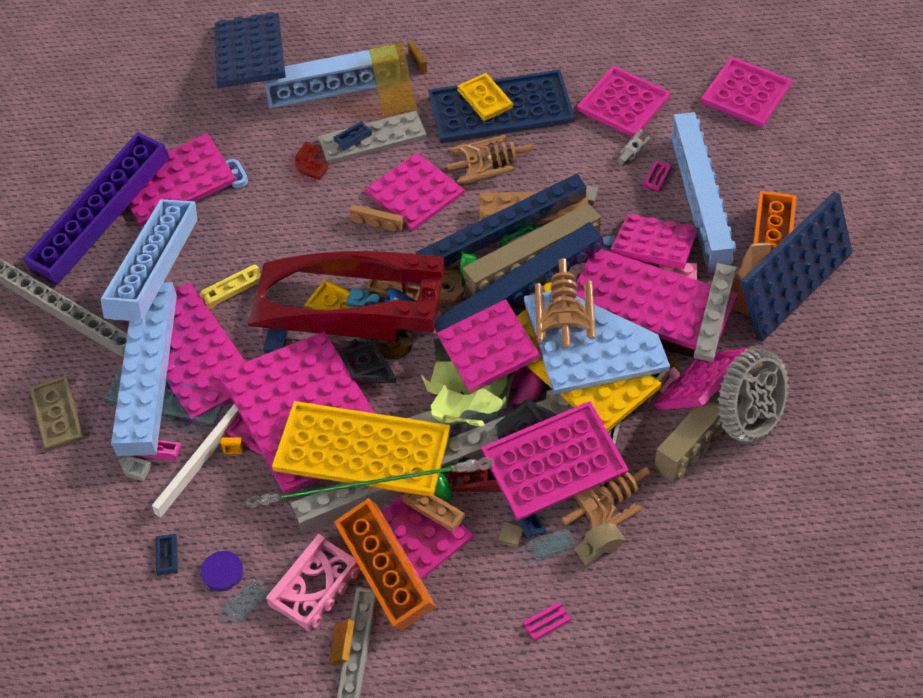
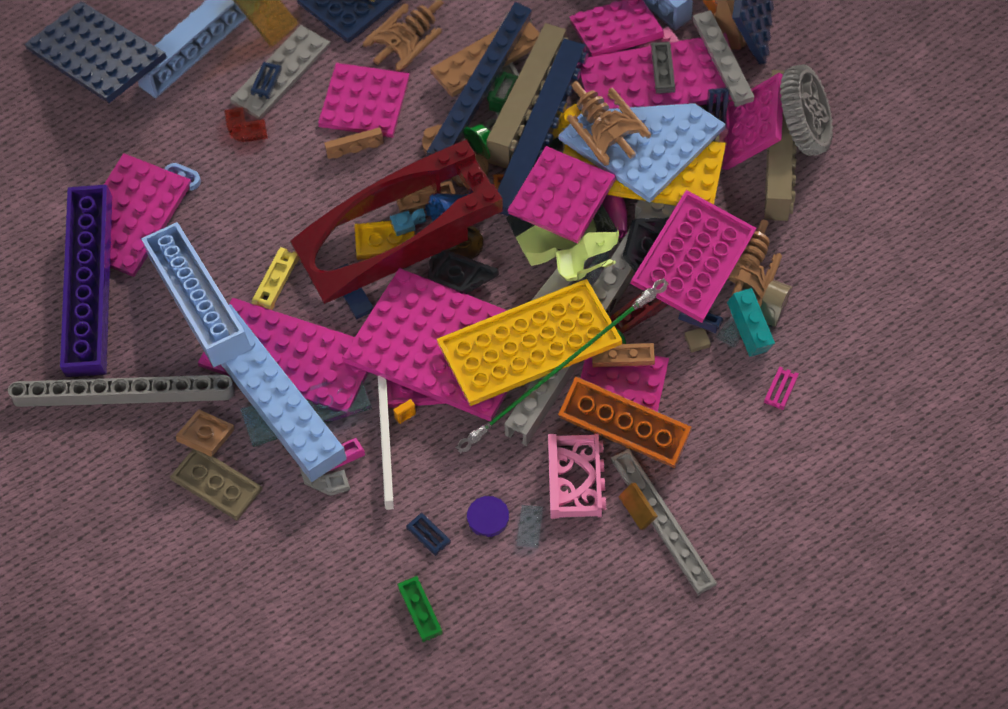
camera: 35 degrees left, 5 degrees up
(79, 369) = (205, 433): none -> medium nougat plate
(105, 610) = (419, 609): none -> green plate
(561, 547) = (750, 322): none -> teal brick
(657, 291) = (662, 67): none -> dark grey tile
(676, 363) = (711, 92): none -> dark blue tile

